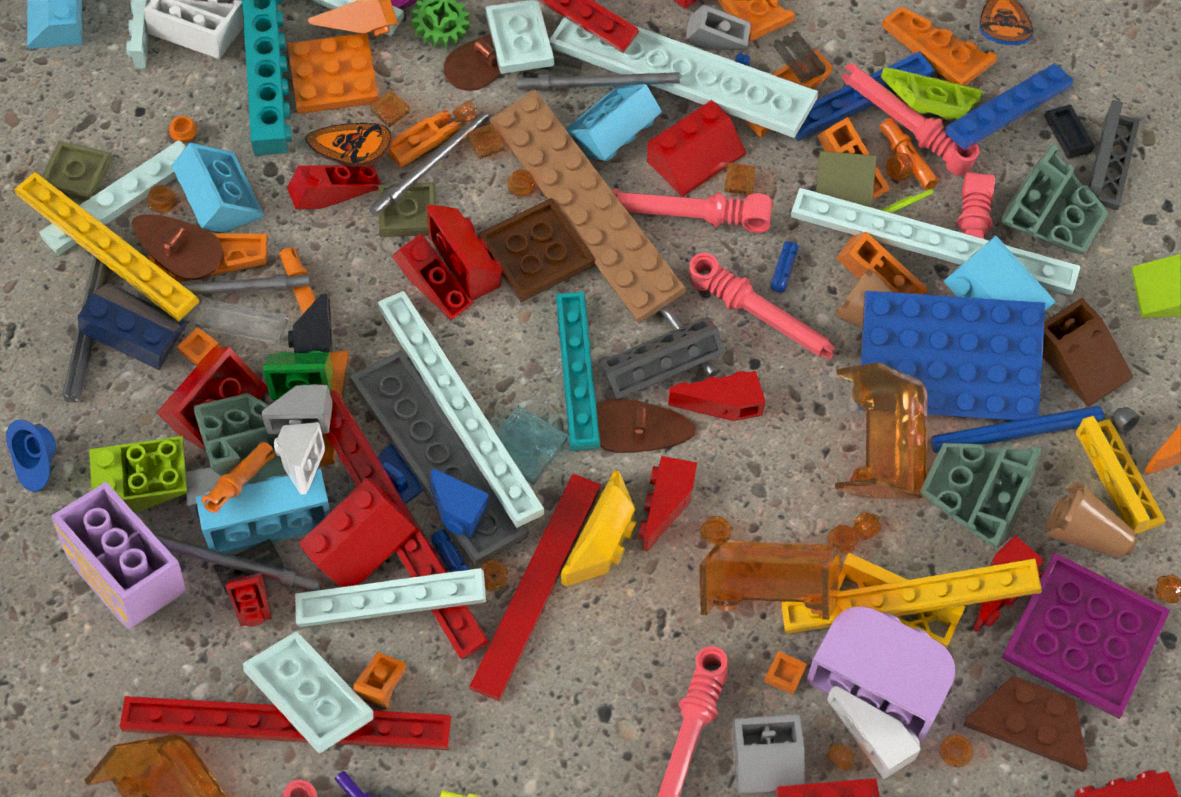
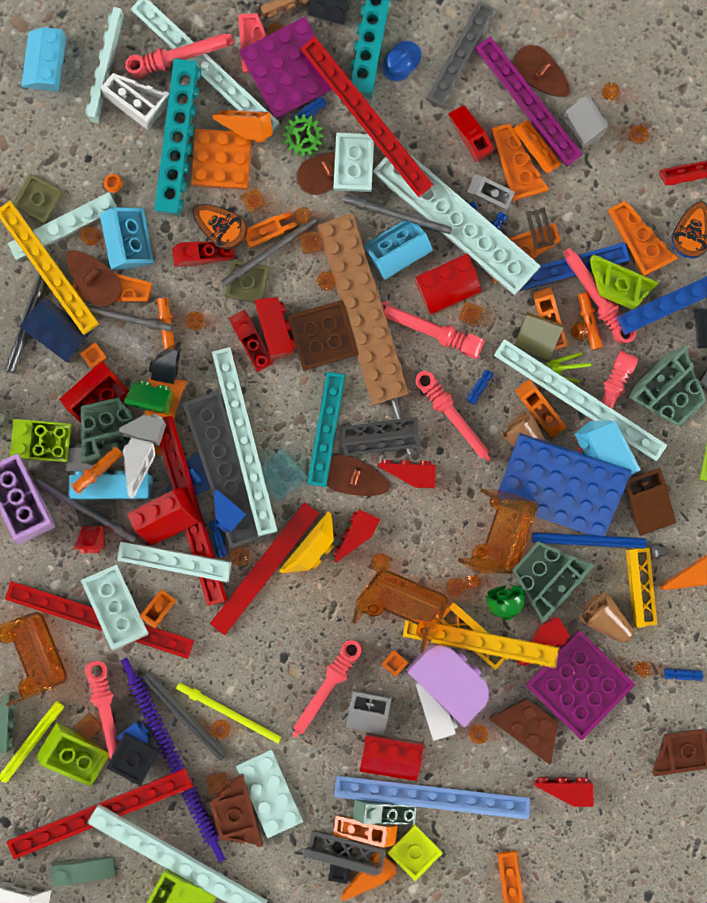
camera: 20 degrees right, 25 degrees up
(341, 272) = (194, 320): none -> clear orange plate
(841, 756) = (410, 722): clear orange plate -> none
(928, 539) = (505, 602): none -> green cylinder

